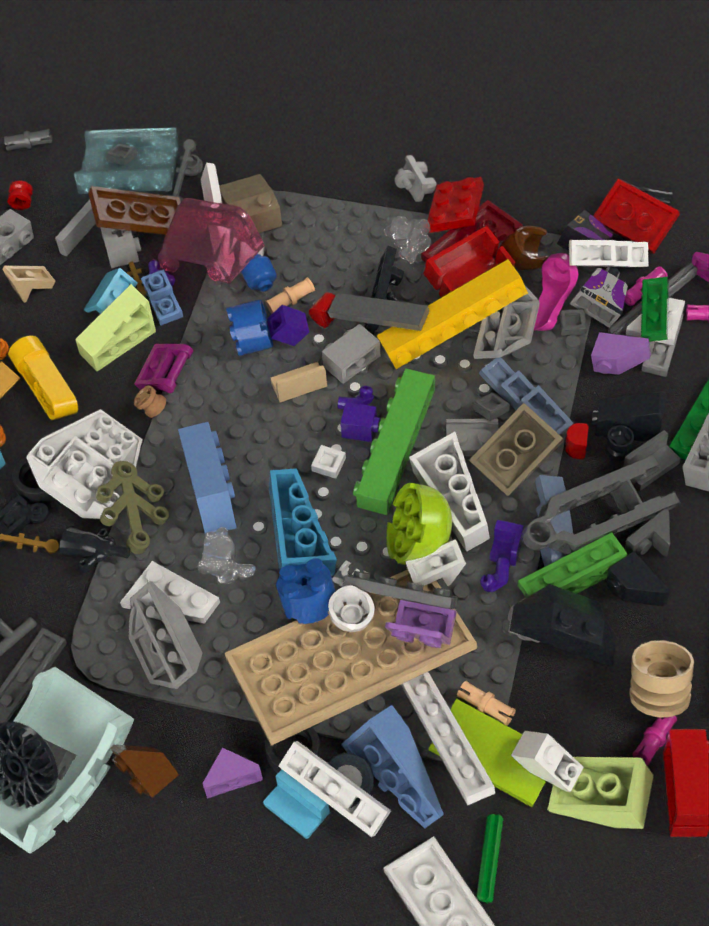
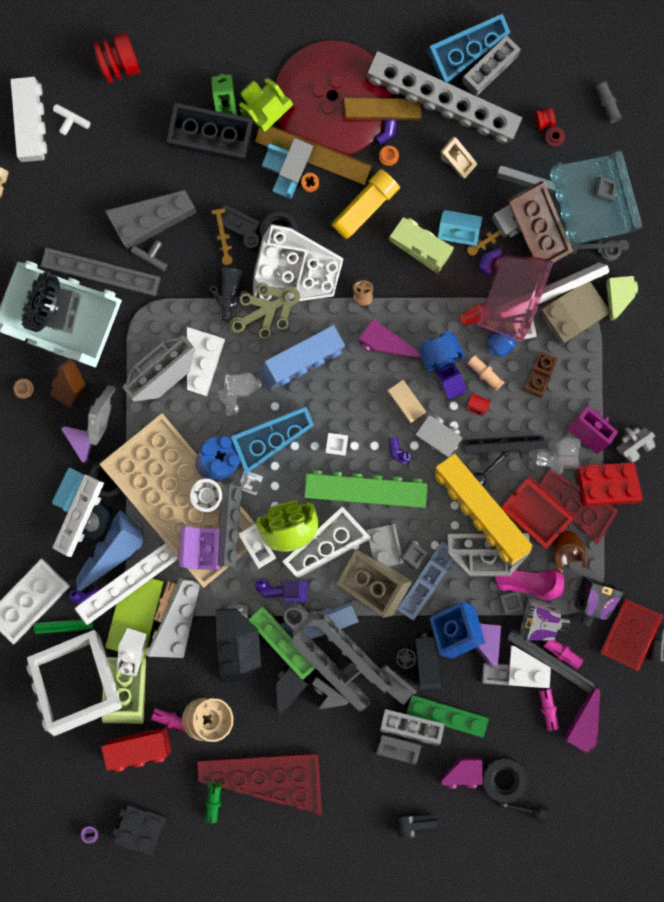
camera: 75 degrees right, 30 degrees up
(44, 193) = (555, 142): none -> dark red plate
(130, 839) = (23, 388): none -> medium nougat plate
(158, 364) = (398, 288): magenta plate -> none
(162, 297) = (465, 270): medium blue slope -> none
(203, 728) = (99, 416): none -> light grey wing
(216, 386) = (383, 341): none -> magenta slope
(217, 294) = (469, 316): none -> red cone
(243, 162) = (620, 293): none -> yellowish green slope
(305, 246) = (540, 374): none -> reddish brown slope
(359, 422) = (376, 459): dark purple brick -> none
(378, 311) = (472, 451): dark grey tile -> none
(388, 203) = (592, 429): none -> magenta brick
(455, 821) = (79, 597): none -> dark purple arm
(514, 693) = (176, 621): none -> light grey wing
(567, 798) = (110, 705): none -> white window
(576, 440) = (400, 625): red brick -> none
(595, 371) = (457, 630): none -> blue brick
(608, 253) = (576, 620): white slope -> none
(655, 309) = (531, 666): green tile -> none

